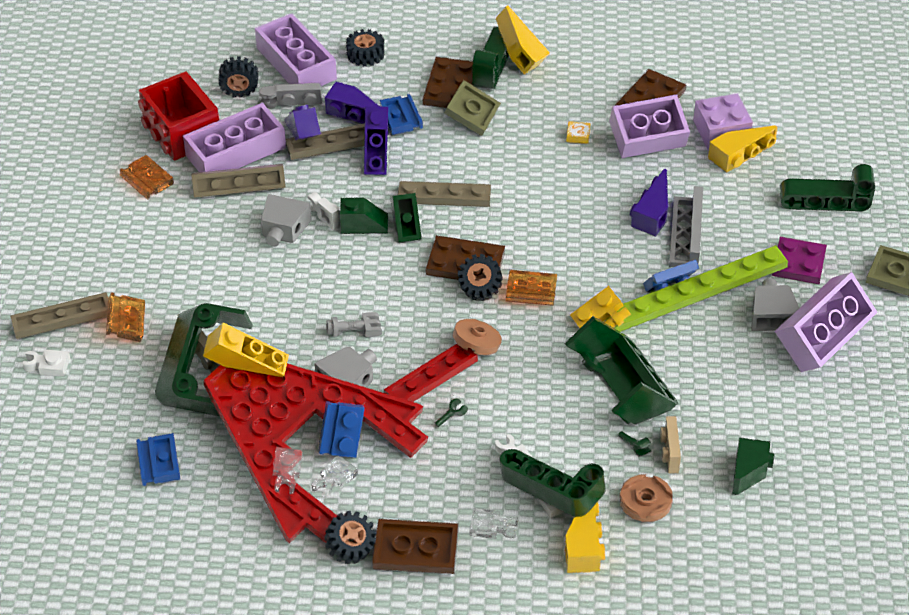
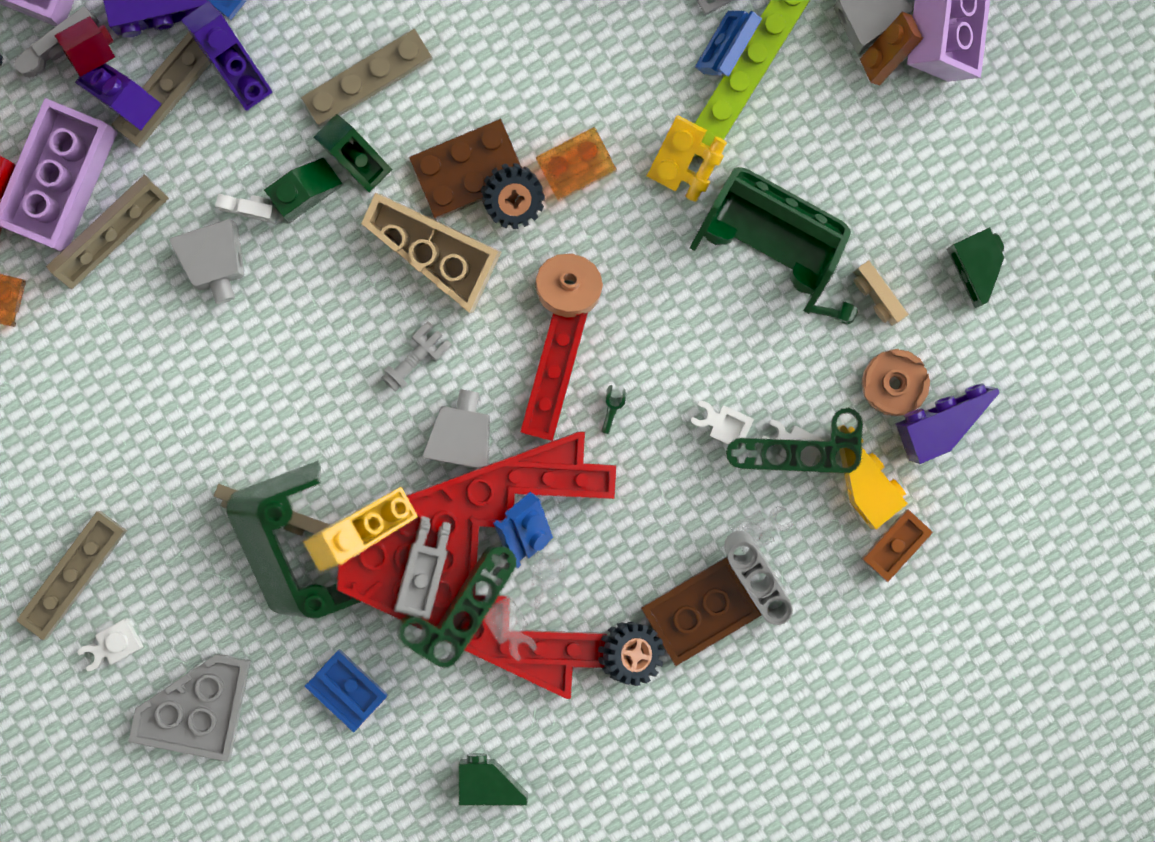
camera: 35 degrees left, 40 degrees up
(62, 419) = (196, 711): none -> light grey plate
(125, 317) = (150, 530): clear orange plate -> none
(193, 556) = (487, 783): none -> dark green slope
(262, 400) = (422, 572): none -> light grey hinge
(304, 425) = (463, 601): none -> dark green beam
(305, 95) = (86, 45): none -> dark red brick
(416, 281) = (444, 255): none -> tan wedge
(467, 528) = (764, 591): none -> light grey beam
(576, 585) = (897, 545): none -> dark orange plate
(658, 533) = (940, 428): none -> dark purple slope
(777, 318) = (891, 48): none -> dark orange plate

